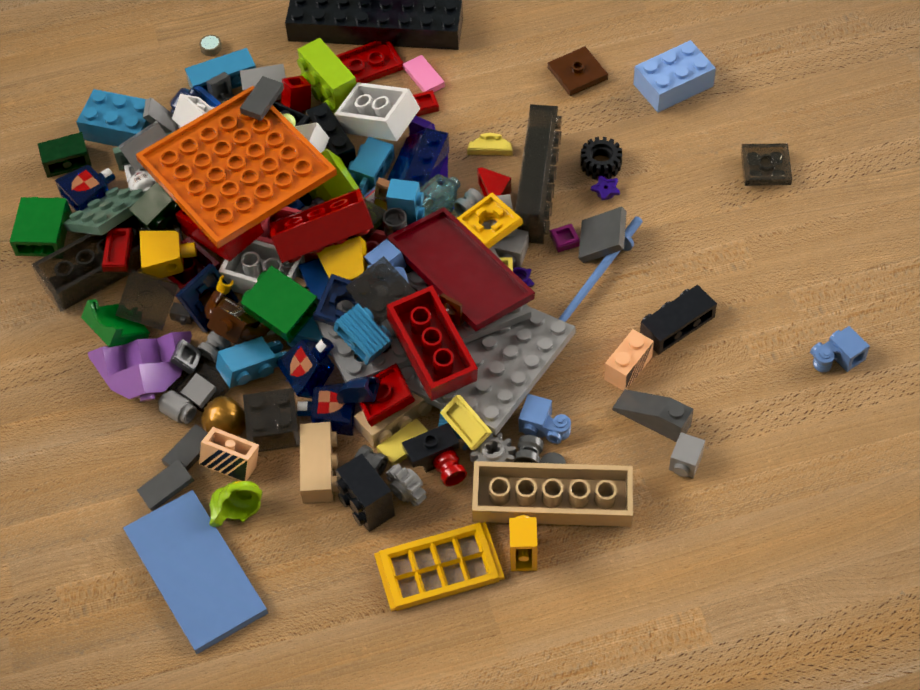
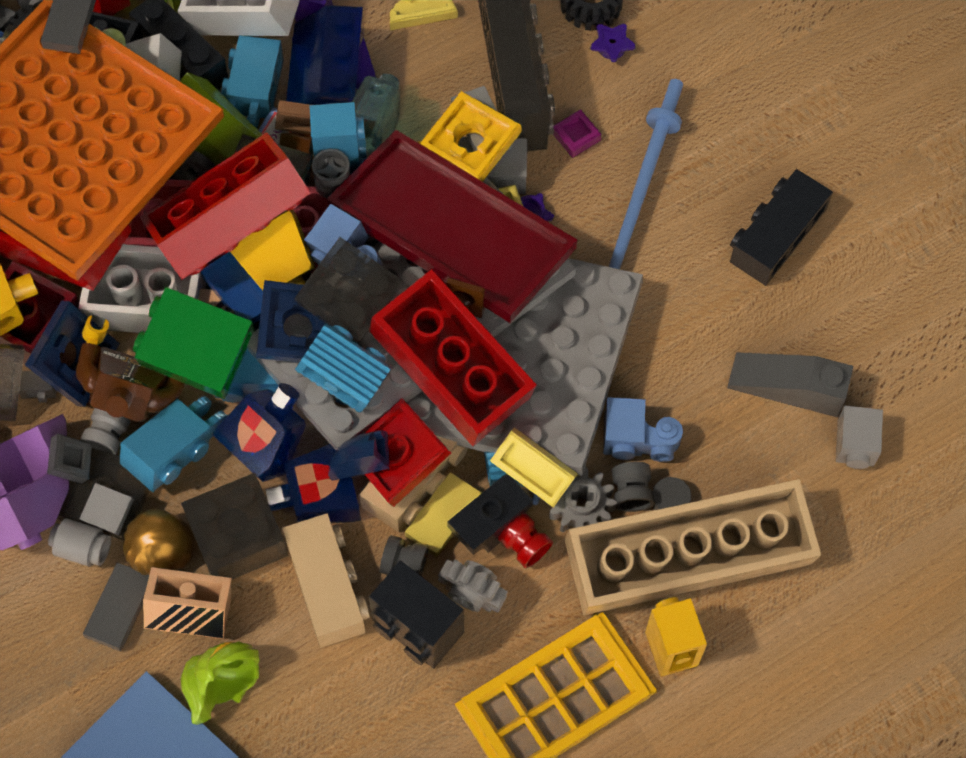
camera: 20 degrees left, 10 degrees up
(165, 485) = (102, 675): dark grey tile -> none
(470, 198) = (424, 107): light grey wheel -> none
(493, 182) = (447, 73): red slope -> none
(602, 234) = (634, 119): dark grey tile -> none
(628, 360) = (731, 307): light nougat brick -> none

